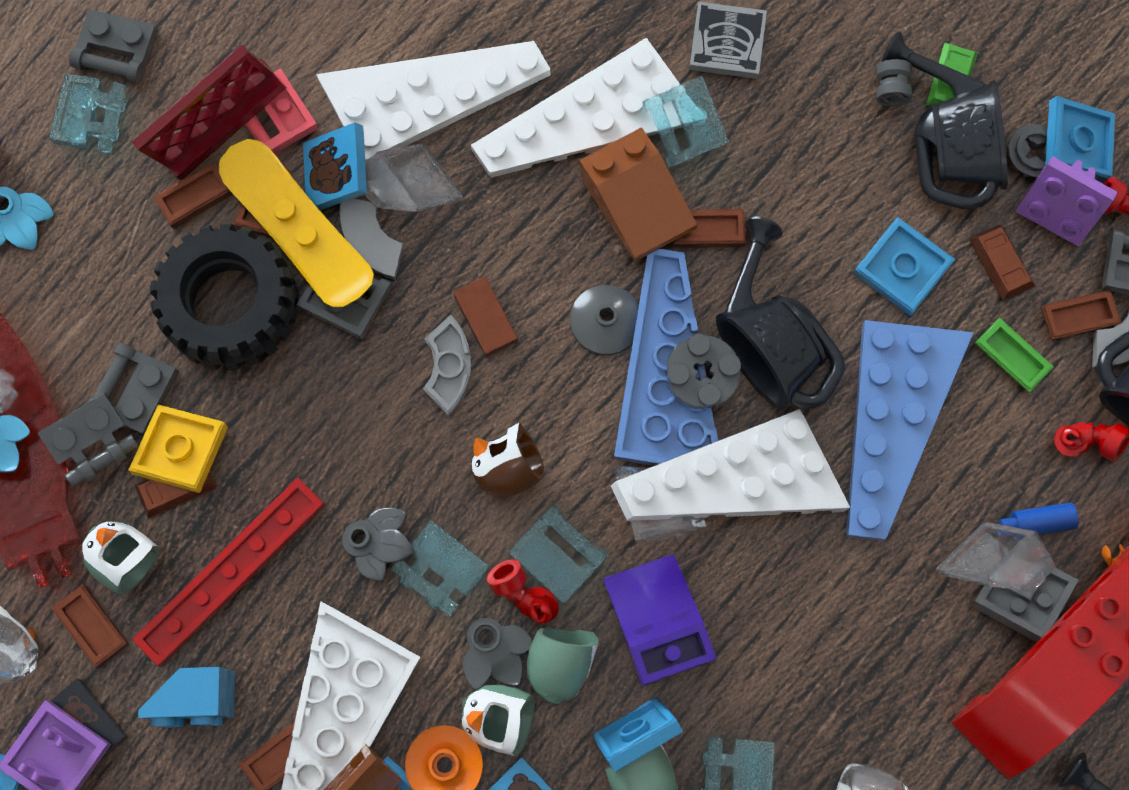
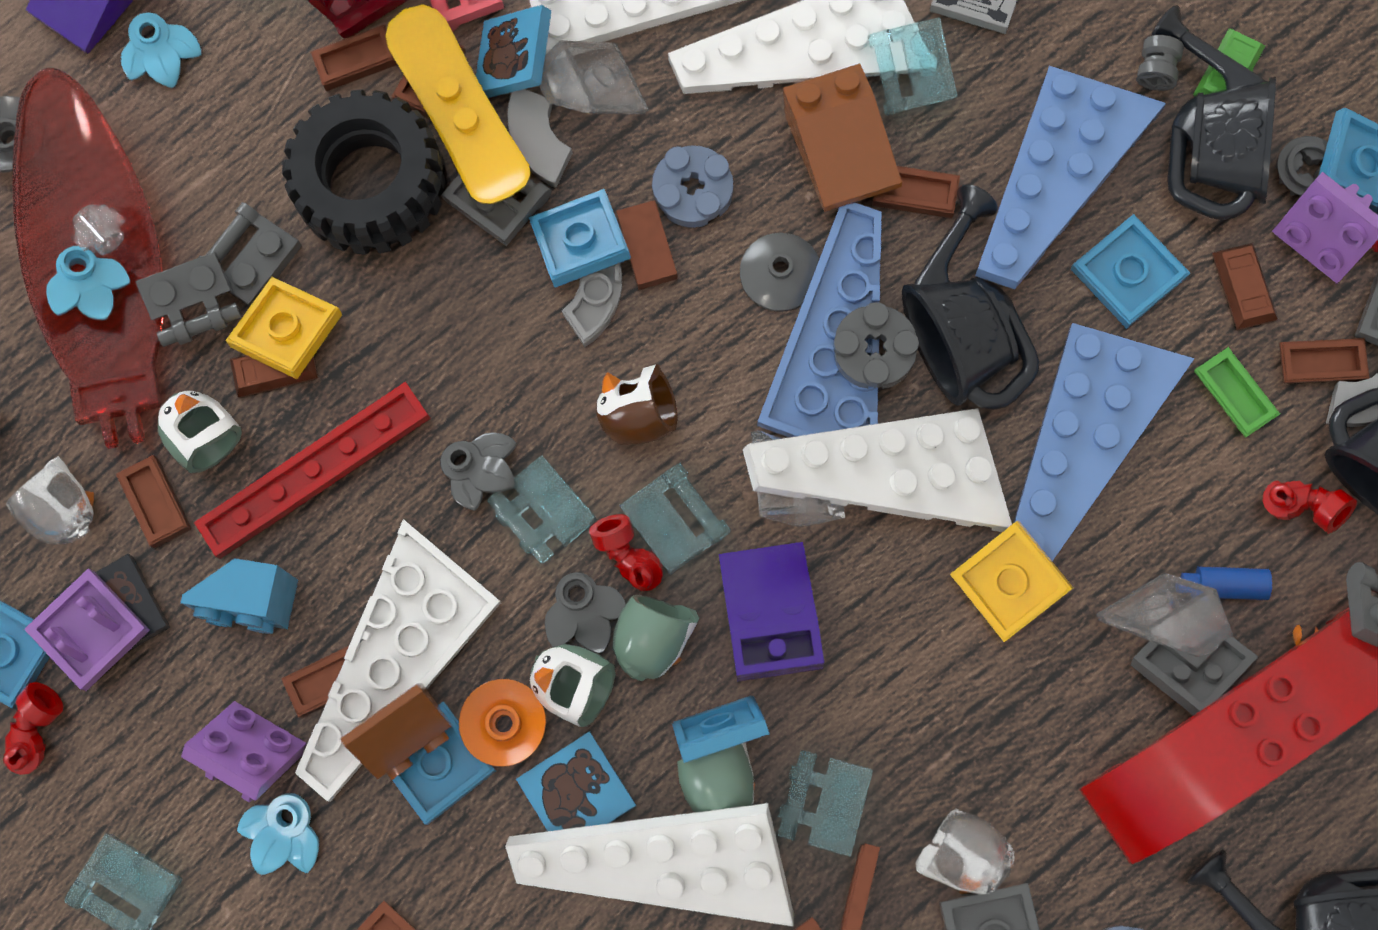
camera: 20 degrees right, 0 degrees up
(426, 321) = (579, 238): none -> dark azure tile
(500, 243) = (706, 203): none -> sand blue plate
(830, 175) = (1065, 156): none -> medium blue wing
(859, 554) = (1011, 581): none -> yellow tile

